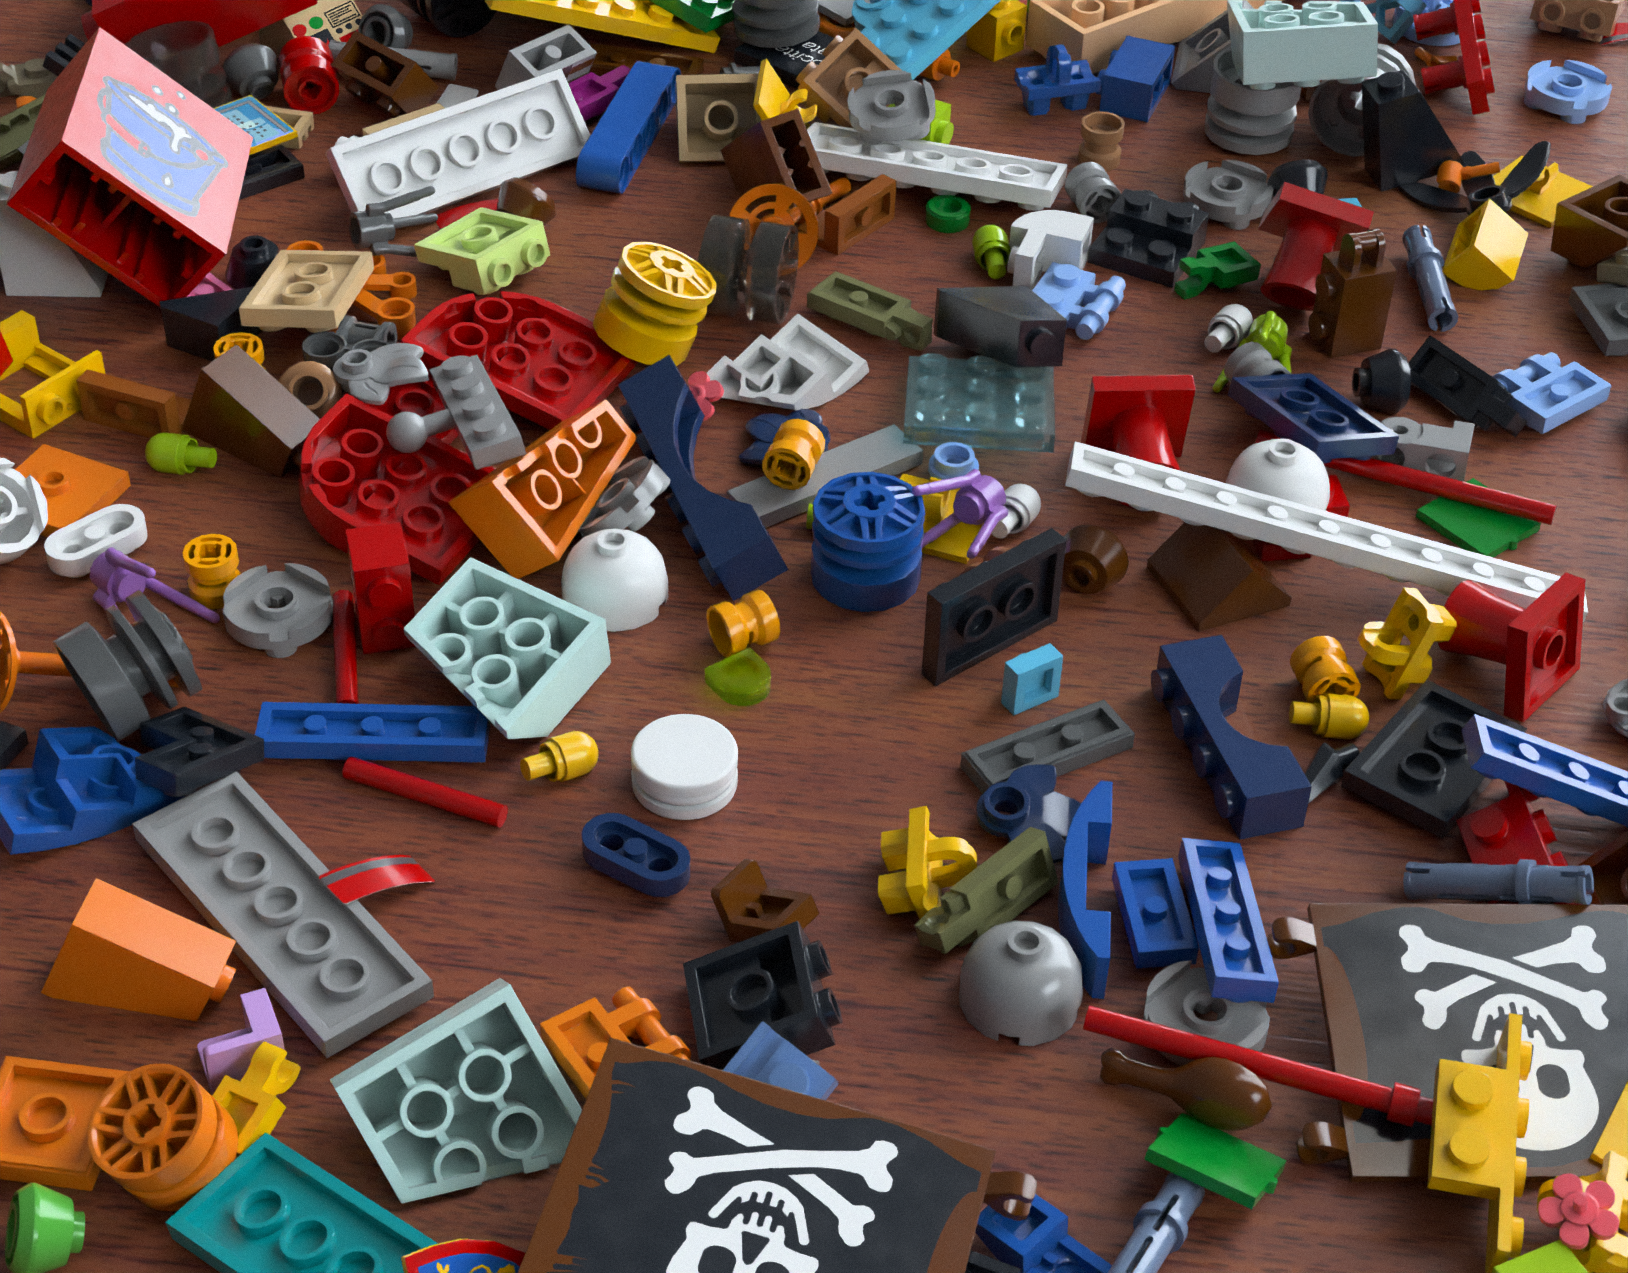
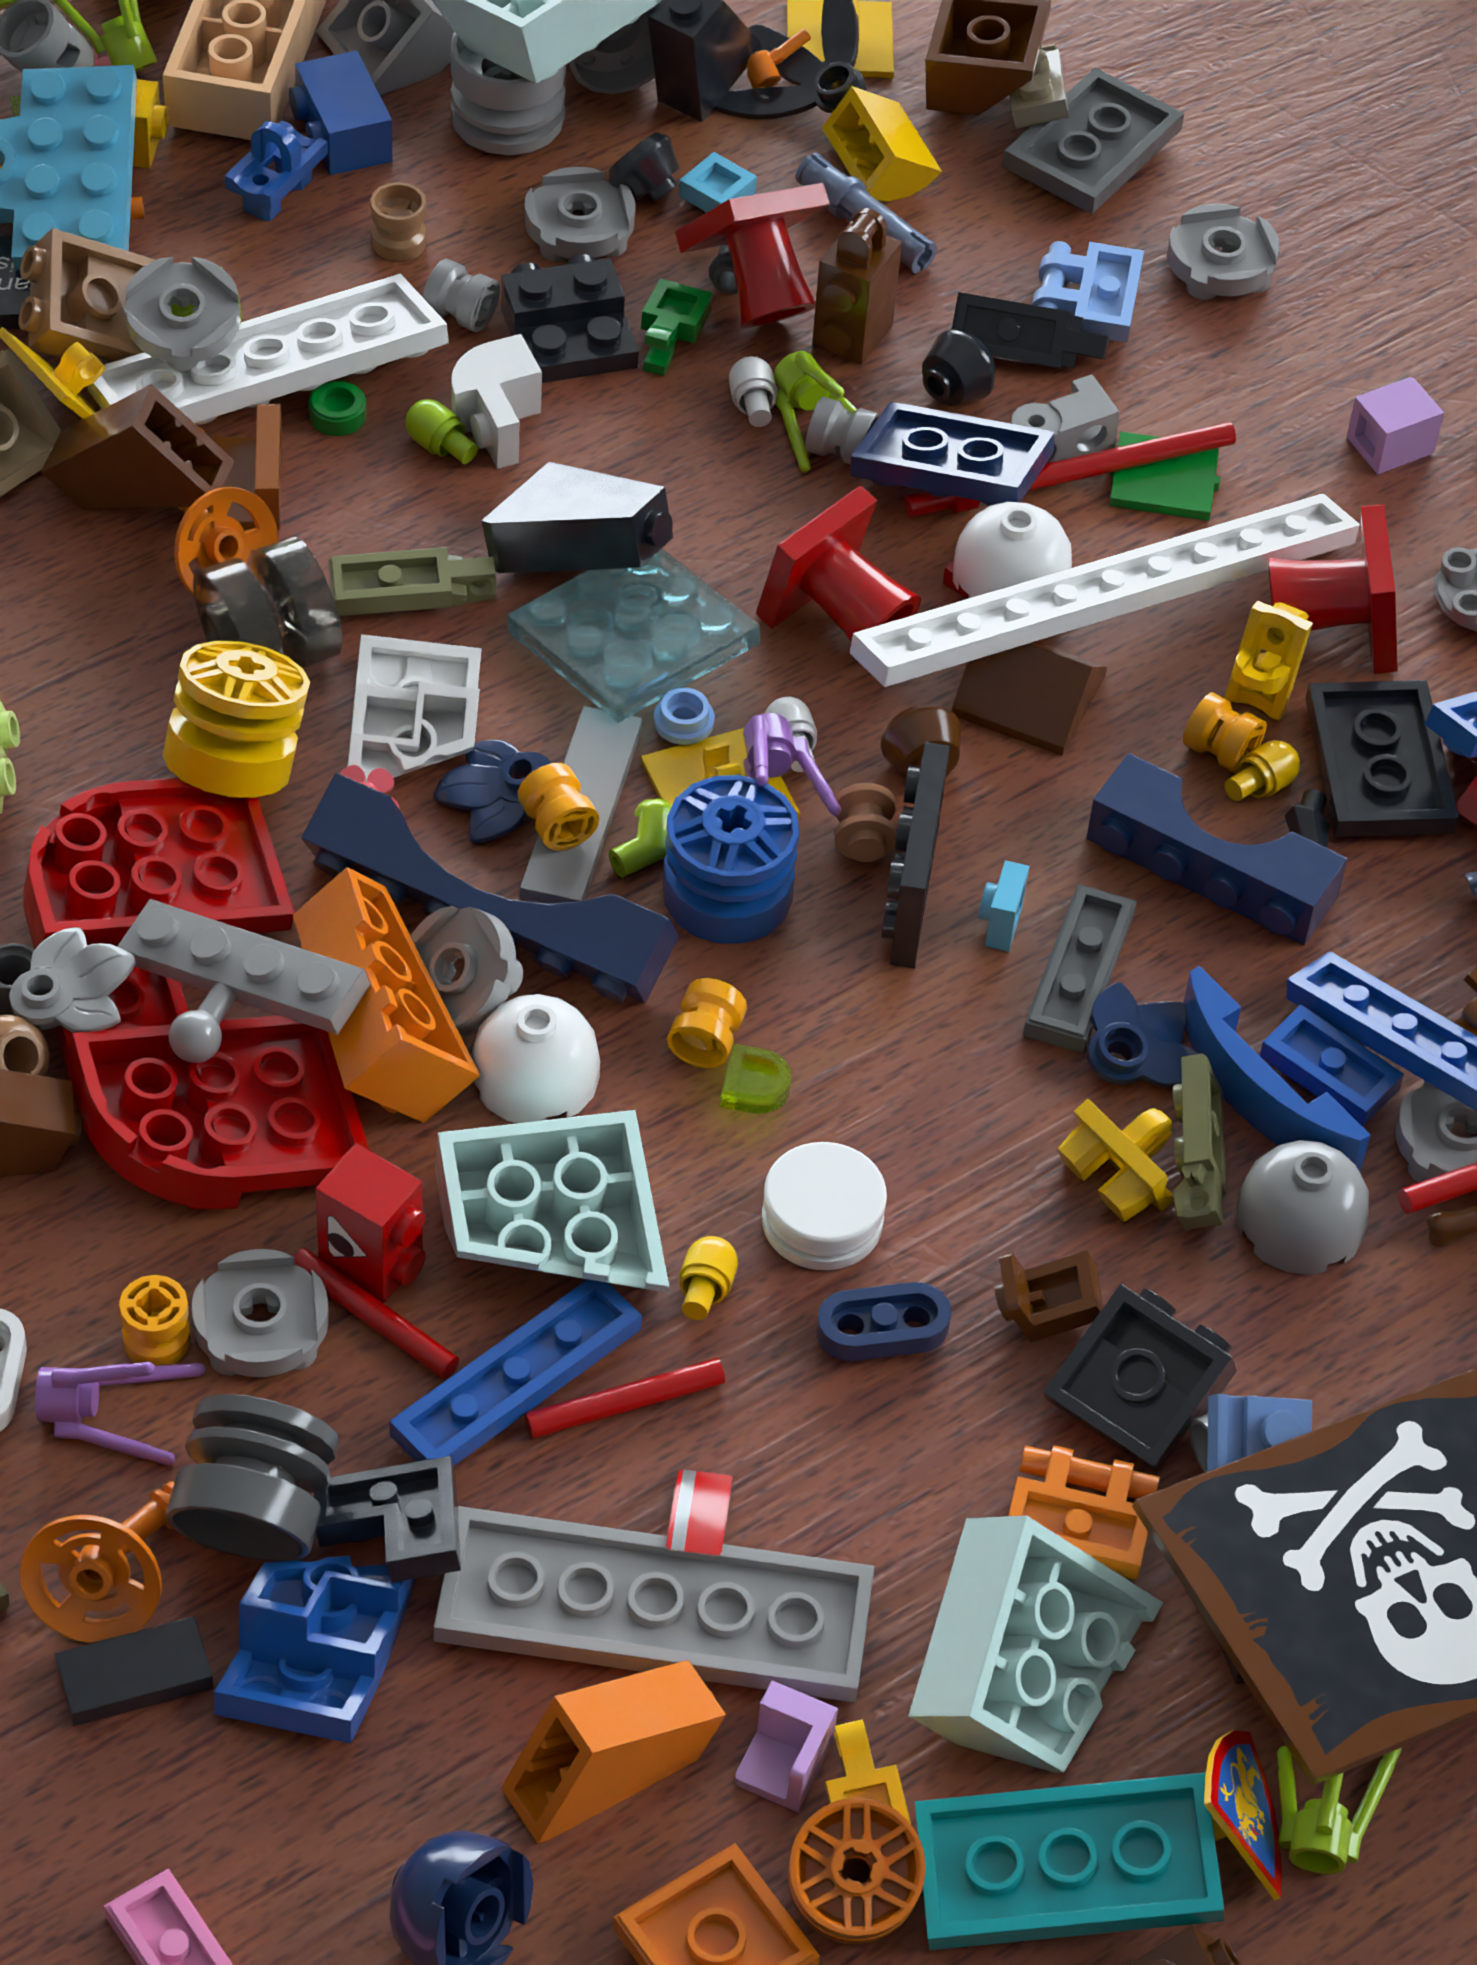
camera: 45 degrees left, 10 degrees up
(1069, 289) = (560, 436): light blue plate -> none

